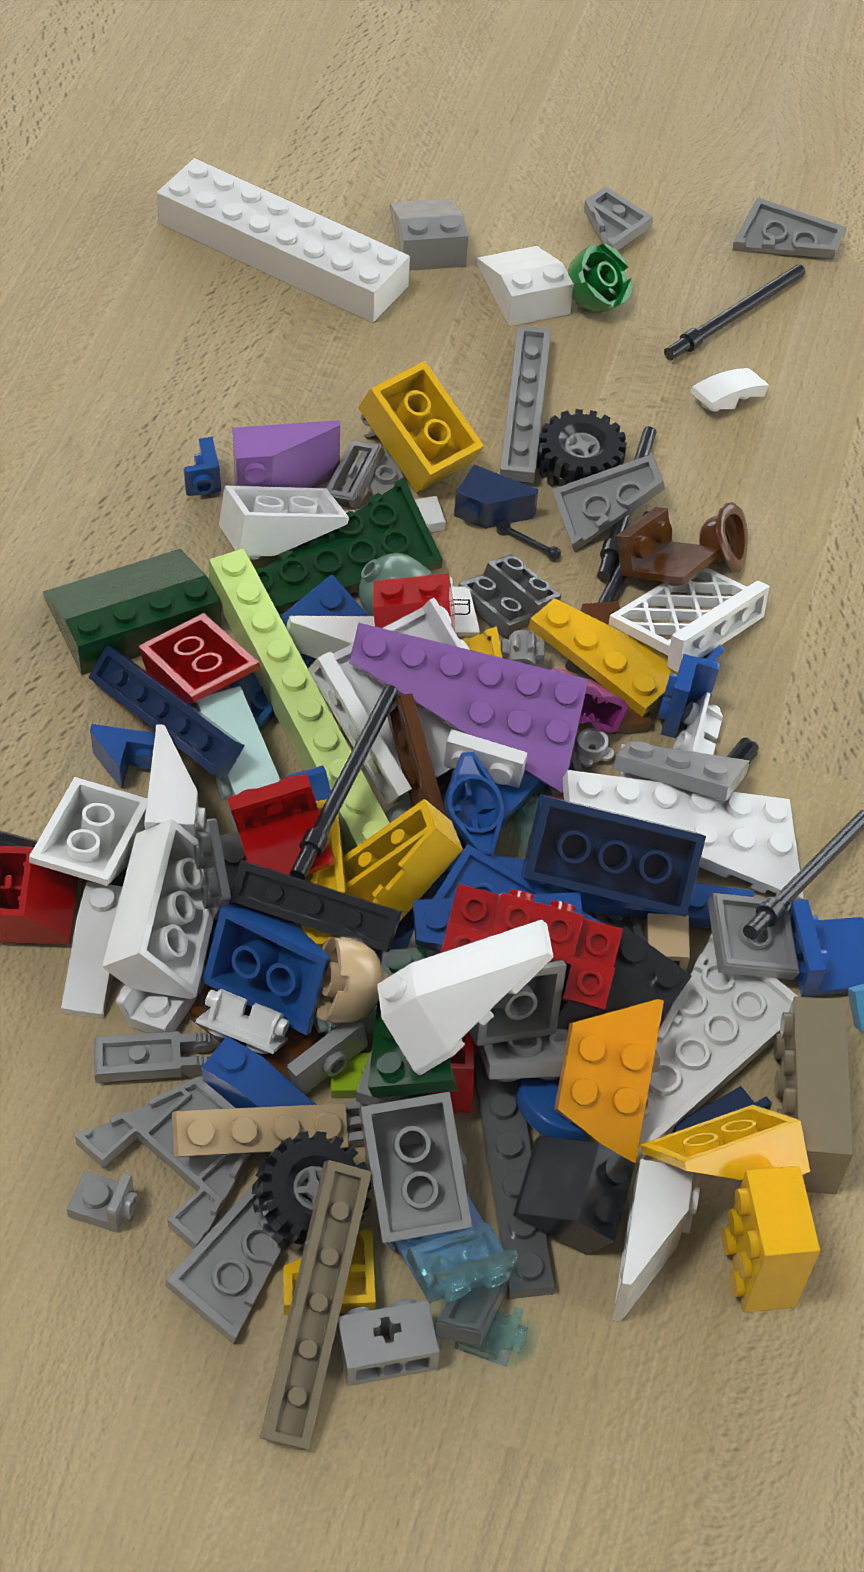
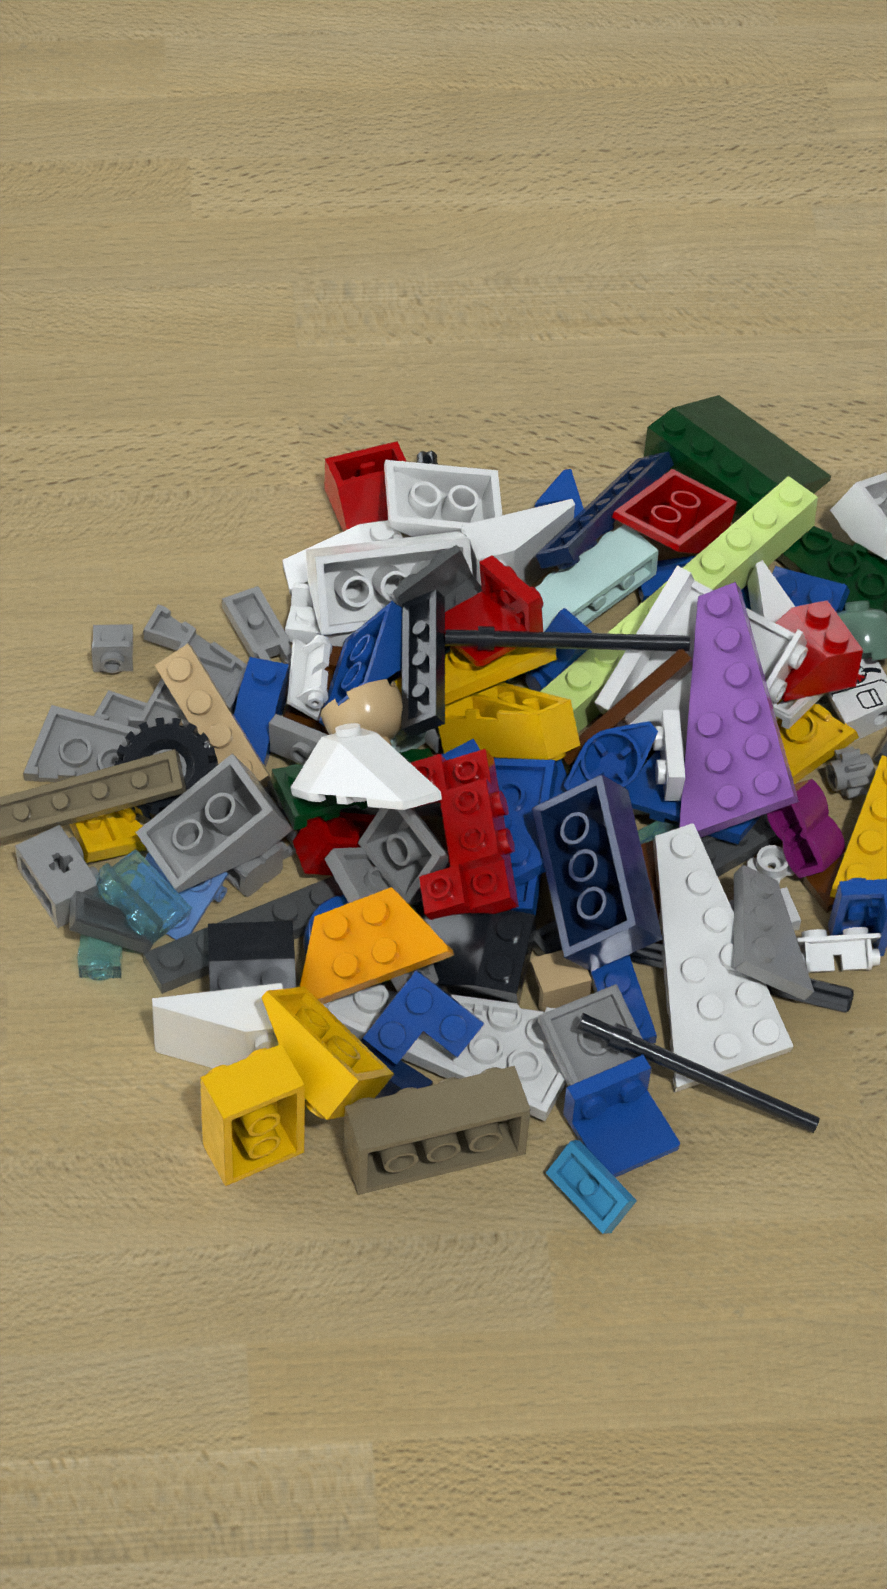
camera: 70 degrees right, 0 degrees up
(687, 1061) = (422, 1008): none -> blue plate

